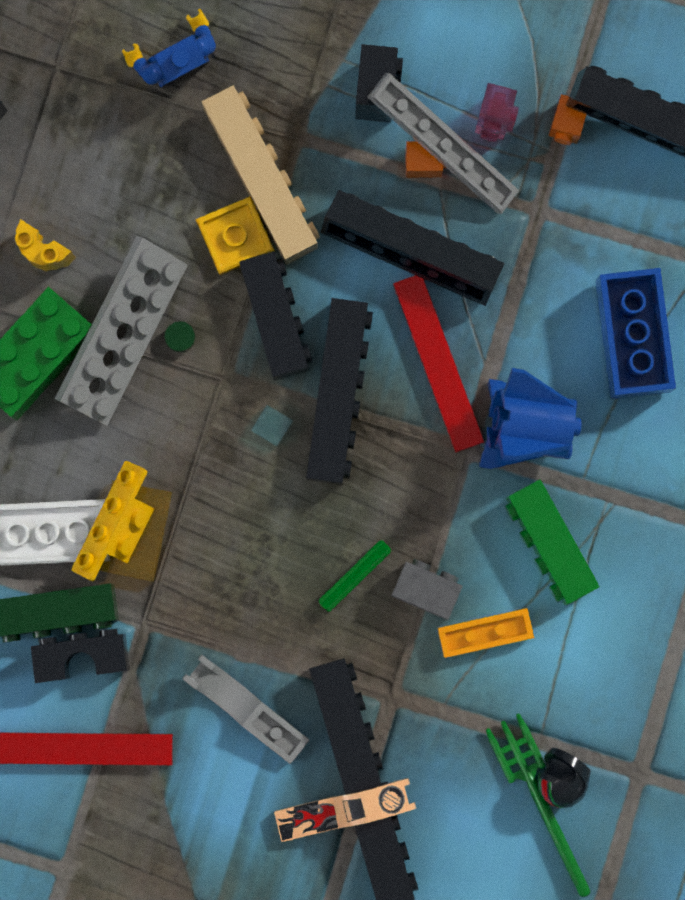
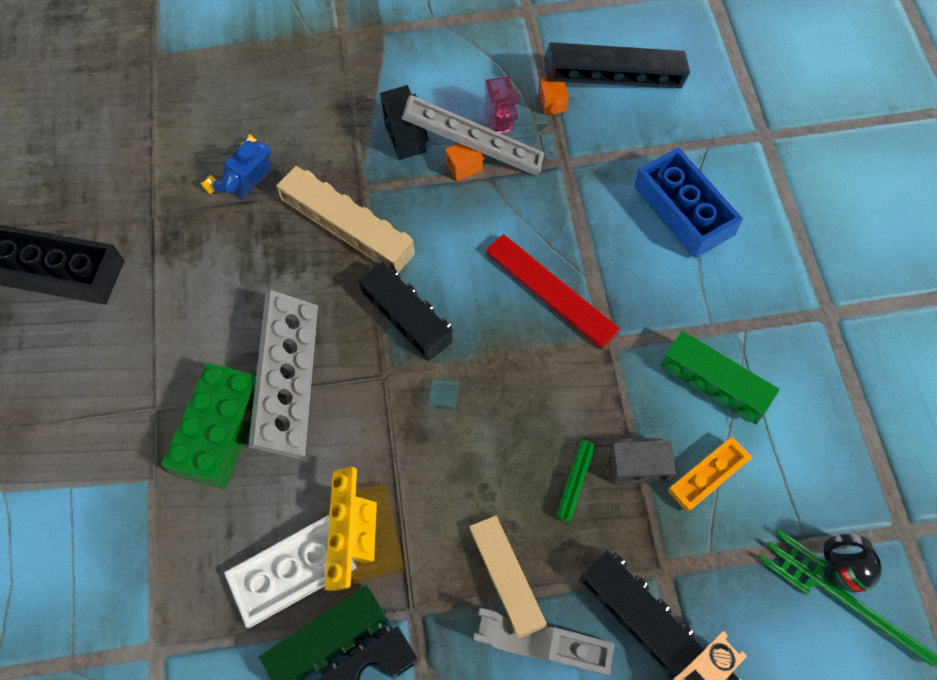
camera: 25 degrees left, 20 degrees down
(40, 255) = (192, 346): yellow cylinder -> none
(180, 336) = (335, 360): dark green tile -> none
(234, 235) = (342, 269): yellow tile -> none
(243, 634) = (507, 577): none -> tan tile
(337, 391) = (485, 345): black brick -> none
(412, 247) = (487, 217): black brick -> none
(528, 421) = (648, 291): blue brick -> none

